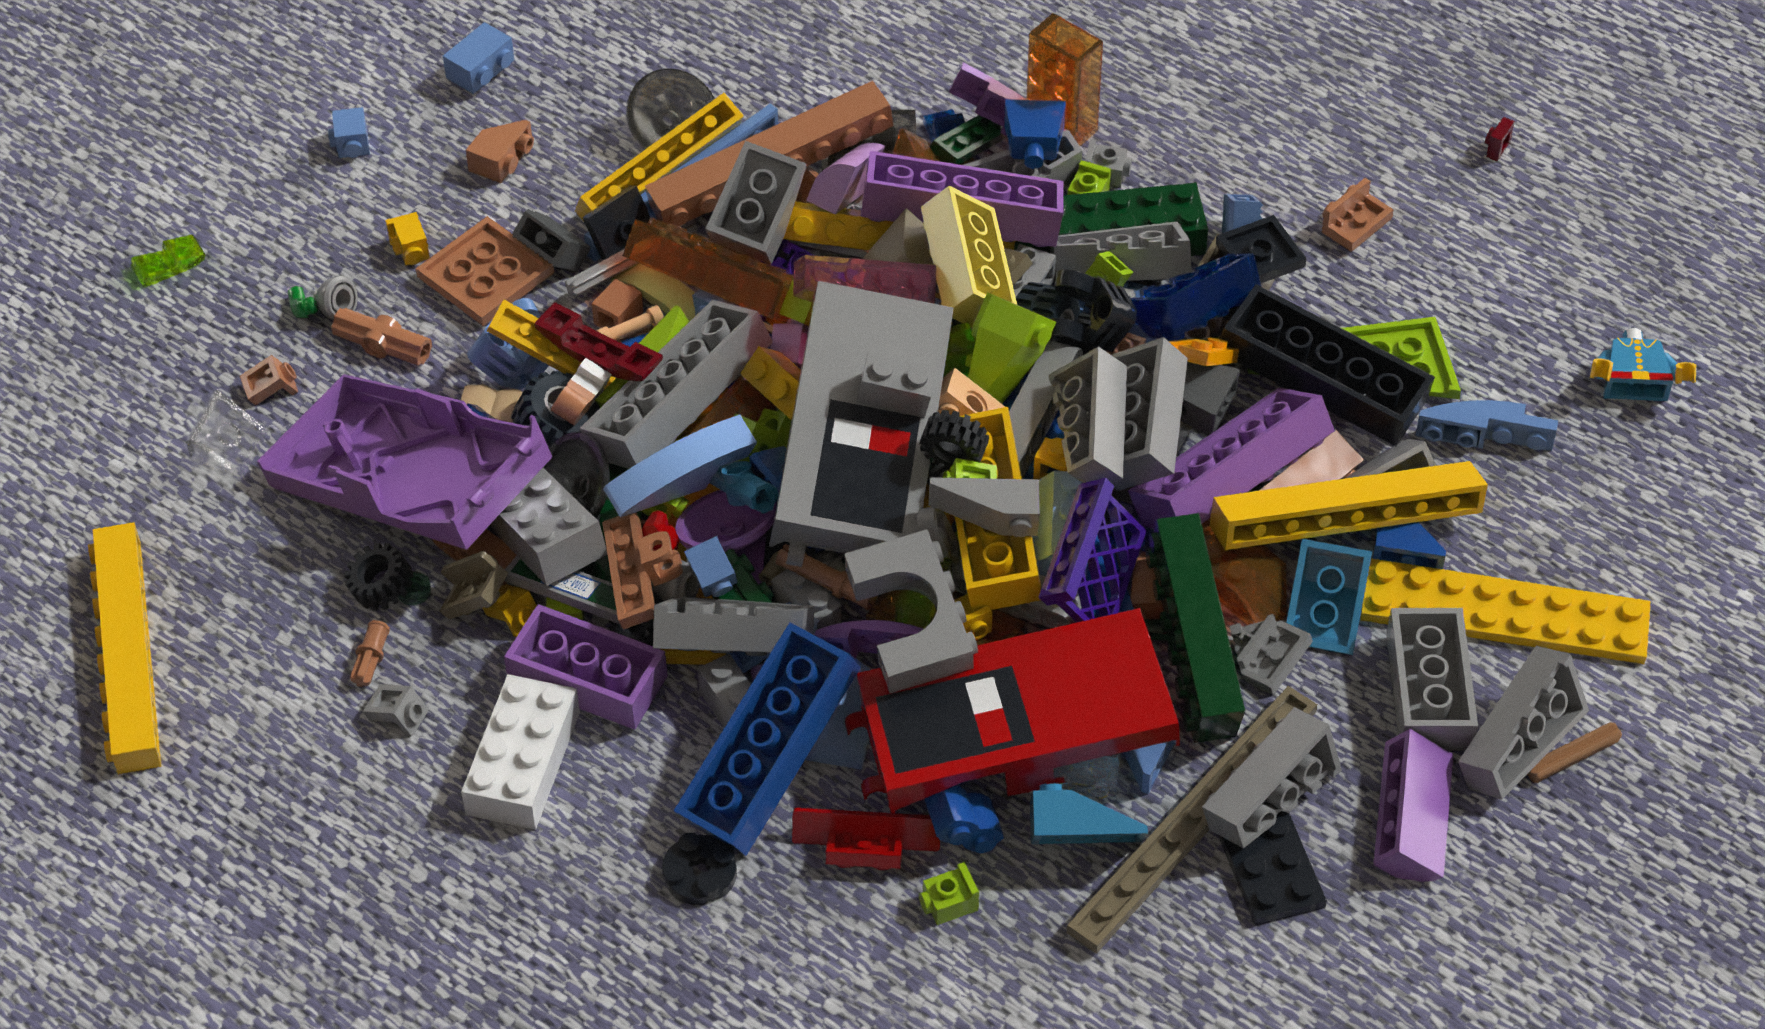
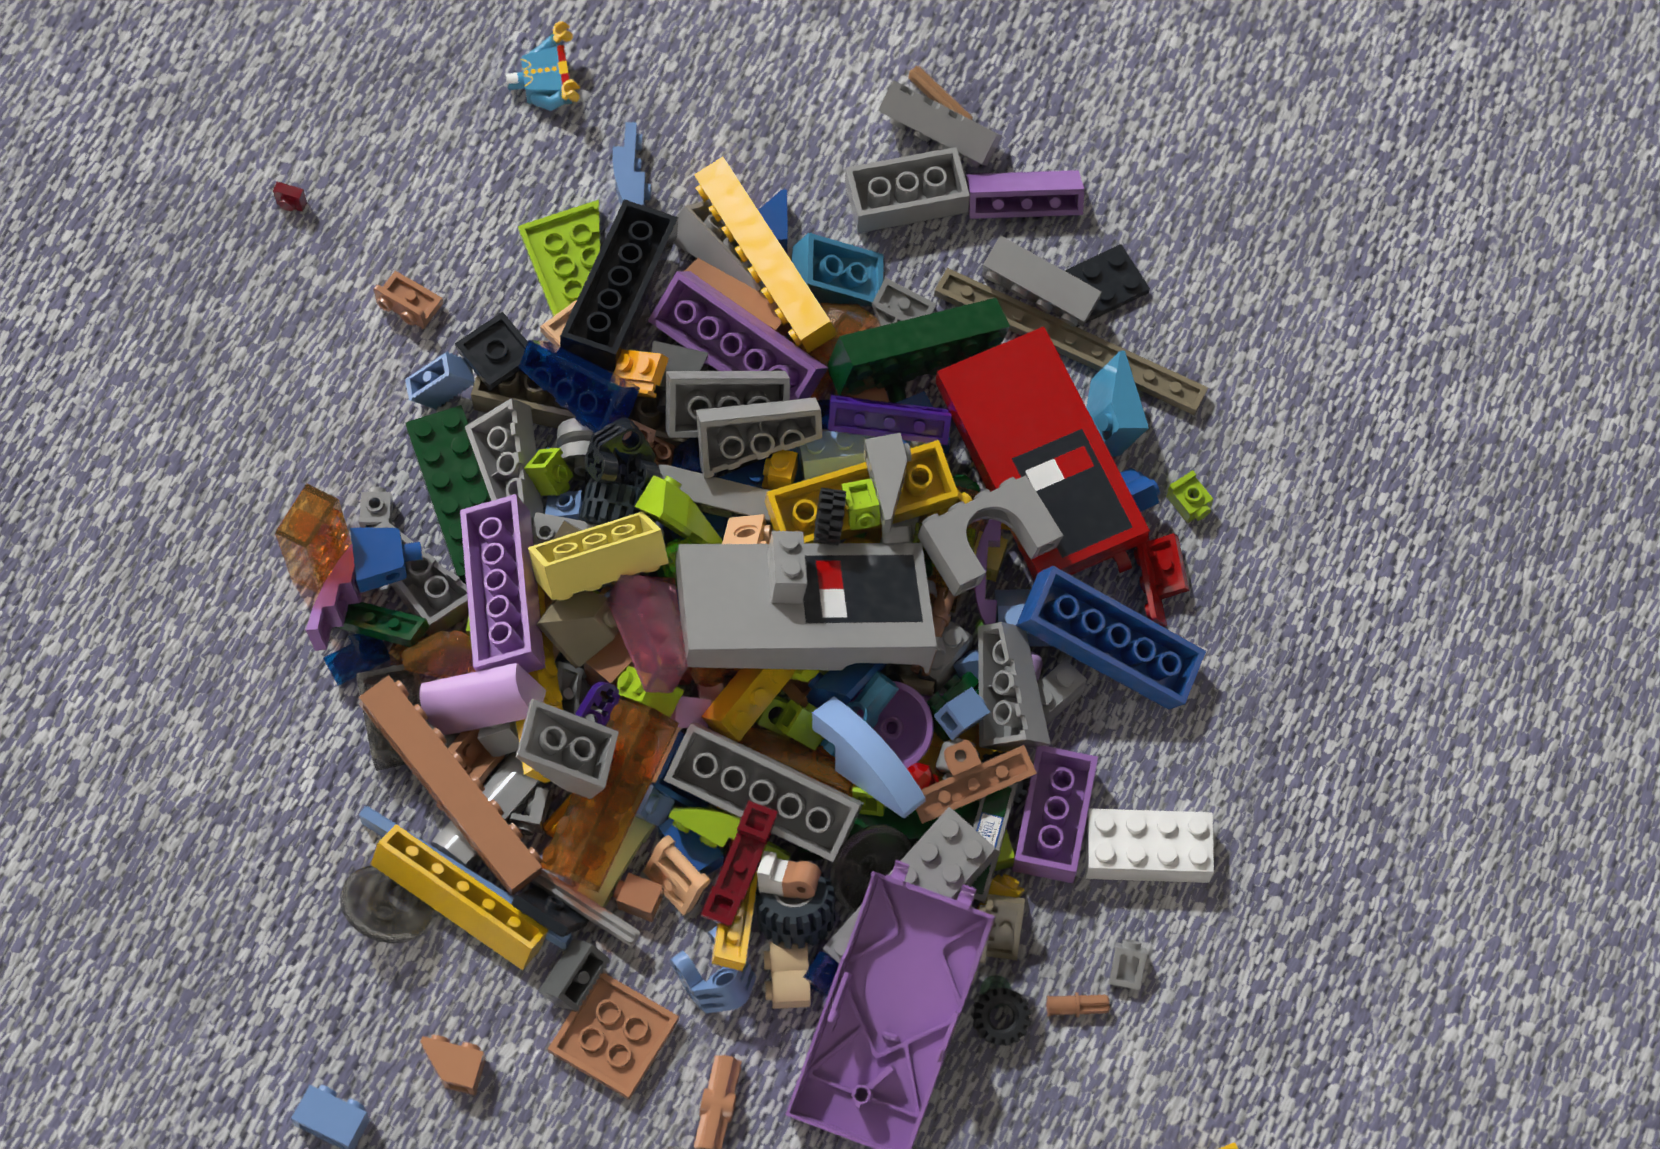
camera: 105 degrees left, 15 degrees up
(408, 238) = (591, 1115): yellow brick -> none
(696, 850) = (1226, 698): black plate -> none
(1090, 179) = (417, 529): lime brick -> none
(1515, 610) = (814, 147): yellow plate -> none

